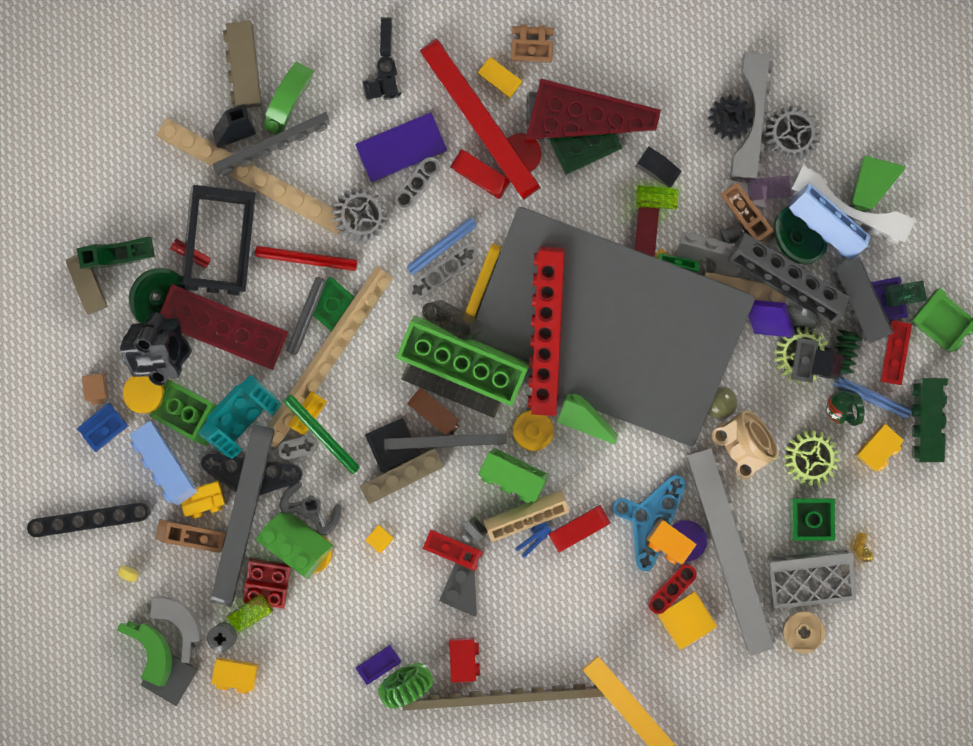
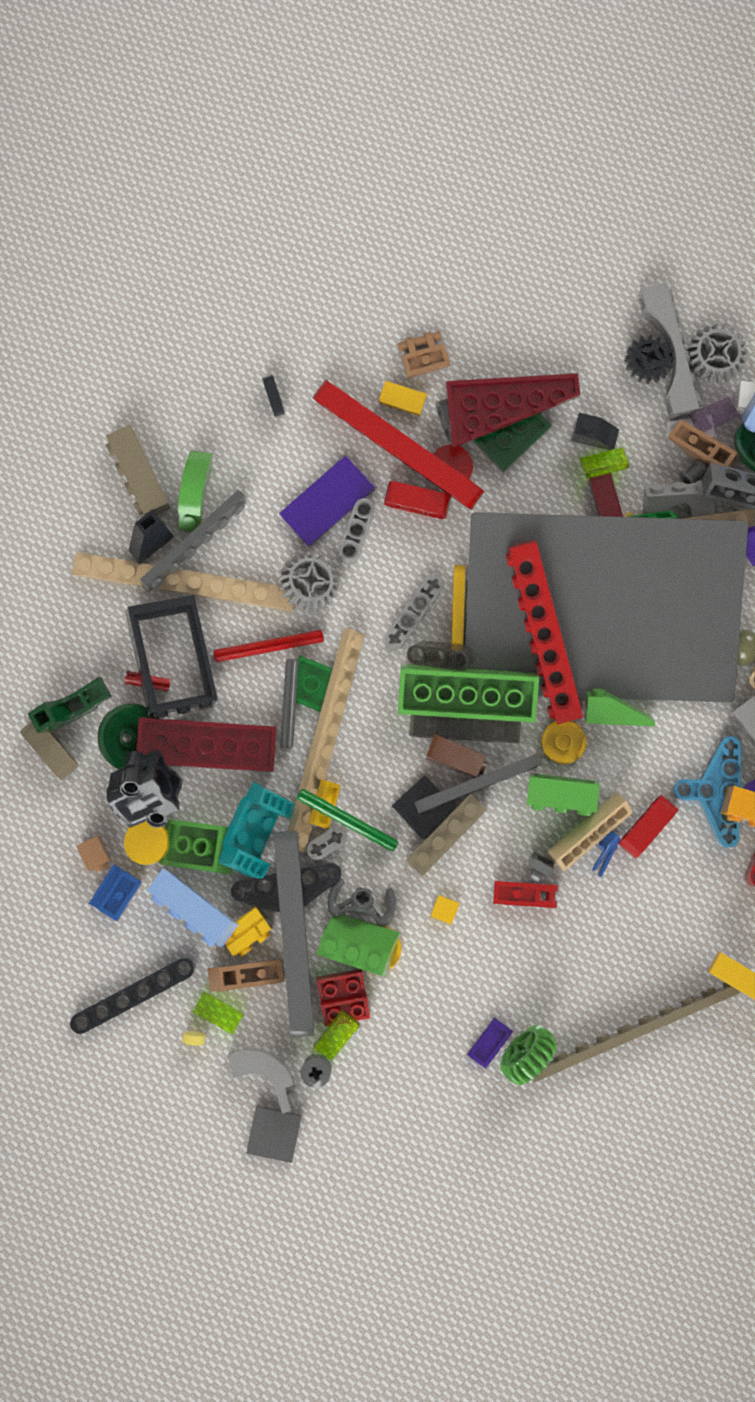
camera: 20 degrees left, 5 degrees down
(156, 559) = (218, 1012): none -> clear neon green tile
(158, 651) = (253, 1110): bright green arch -> none
(234, 675) = (343, 1107): yellow brick -> none
(386, 86) = (288, 443): black piece -> none
(441, 246) = (403, 586): medium blue axle -> none
(461, 590) = (548, 933): dark grey wing -> none
(462, 659) = (578, 1006): red brick -> none

